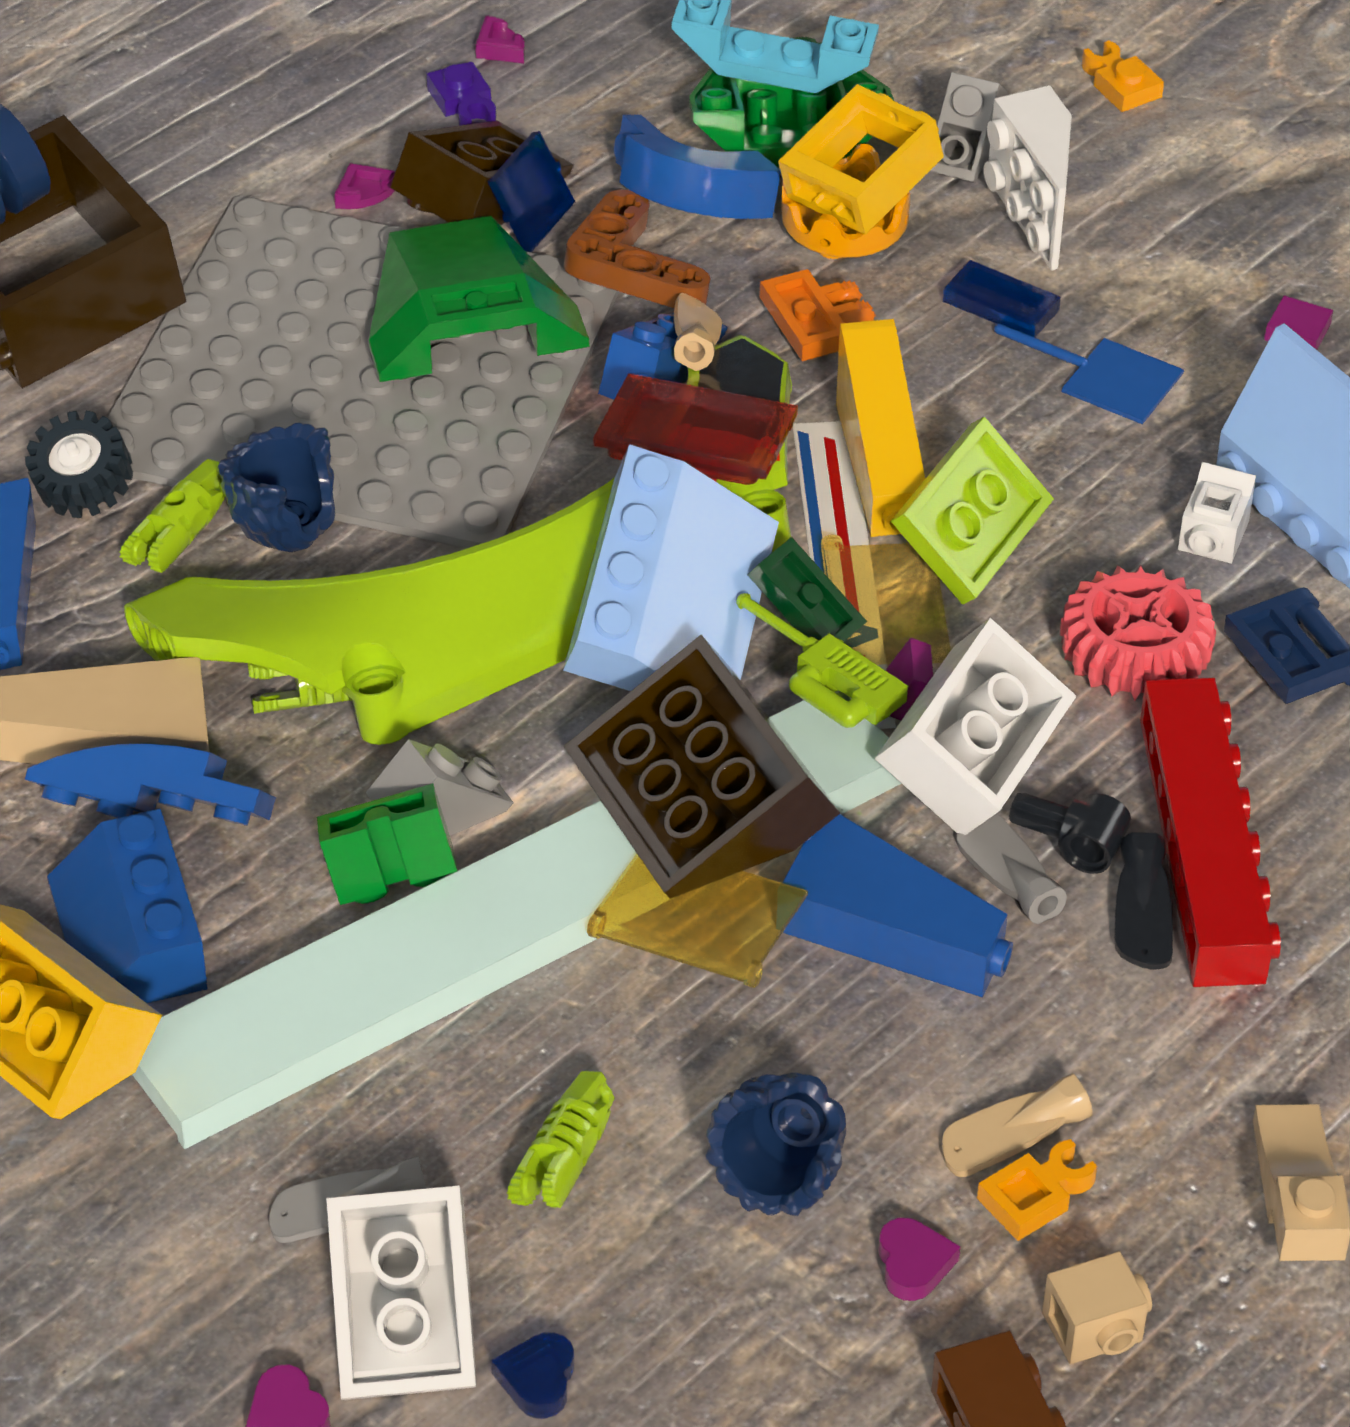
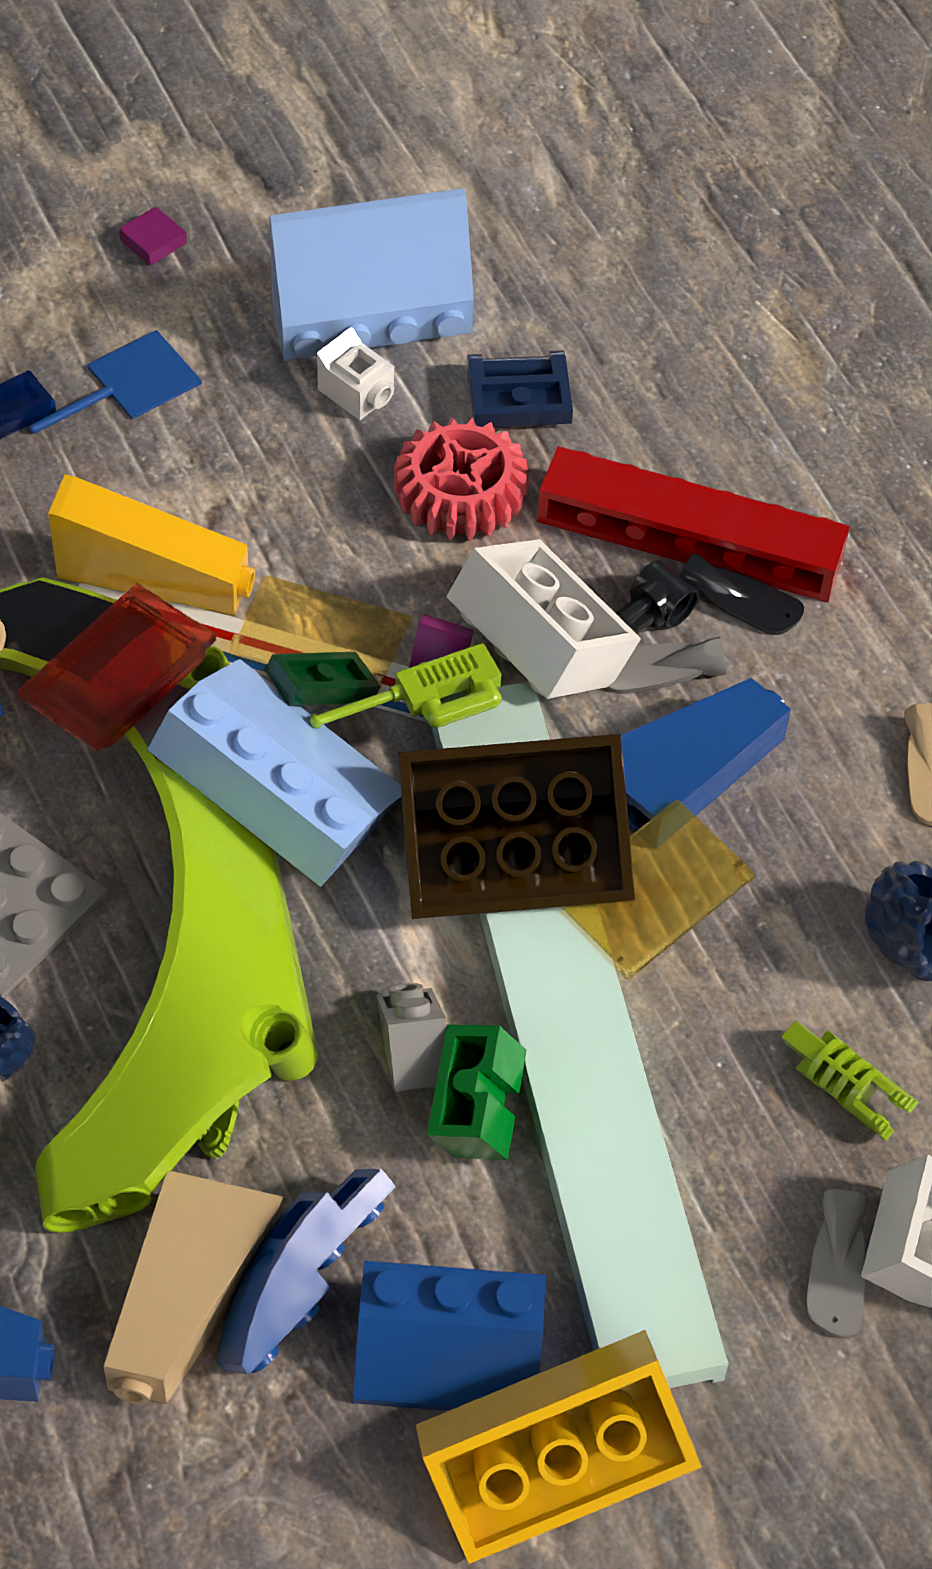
camera: 70 degrees left, 10 degrees up
(972, 510) = (277, 525): lime plate -> none

